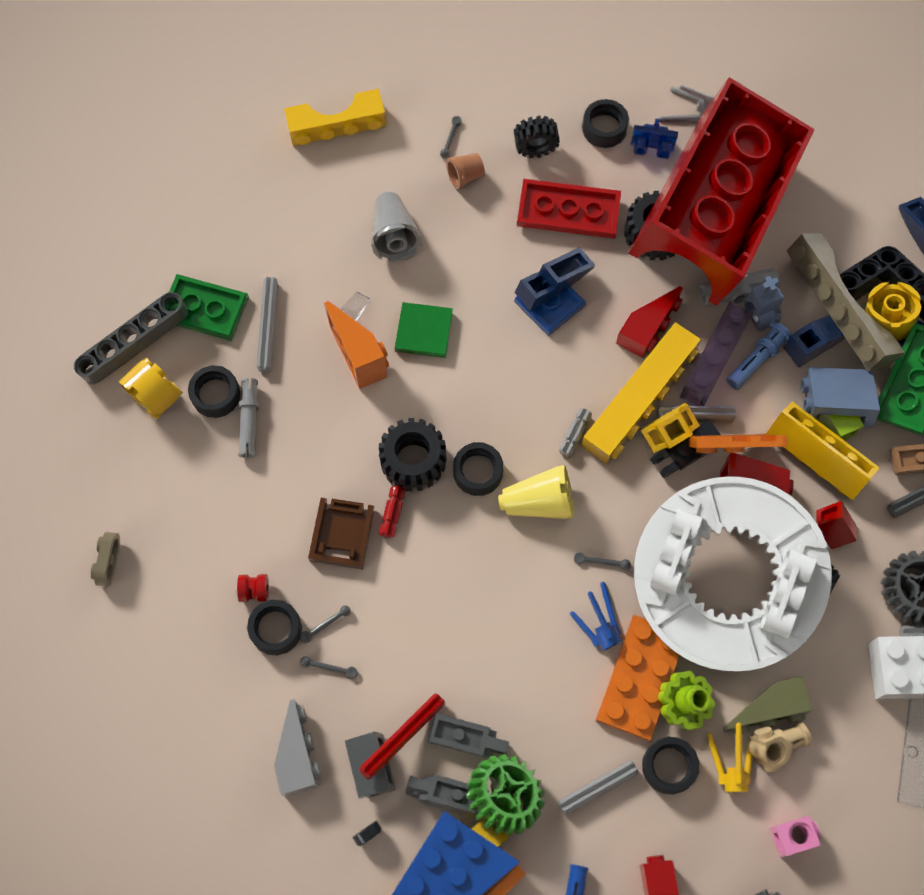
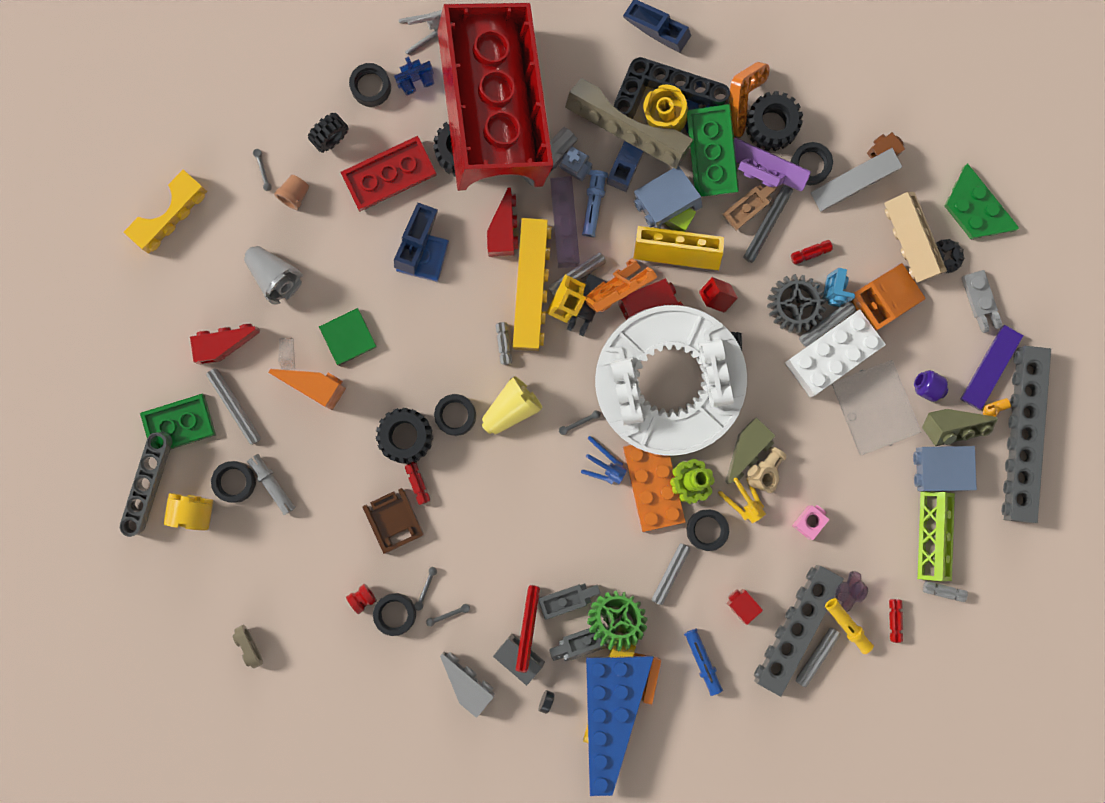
camera: 35 degrees left, 15 degrees up
(294, 259) = (216, 346): none -> red slope

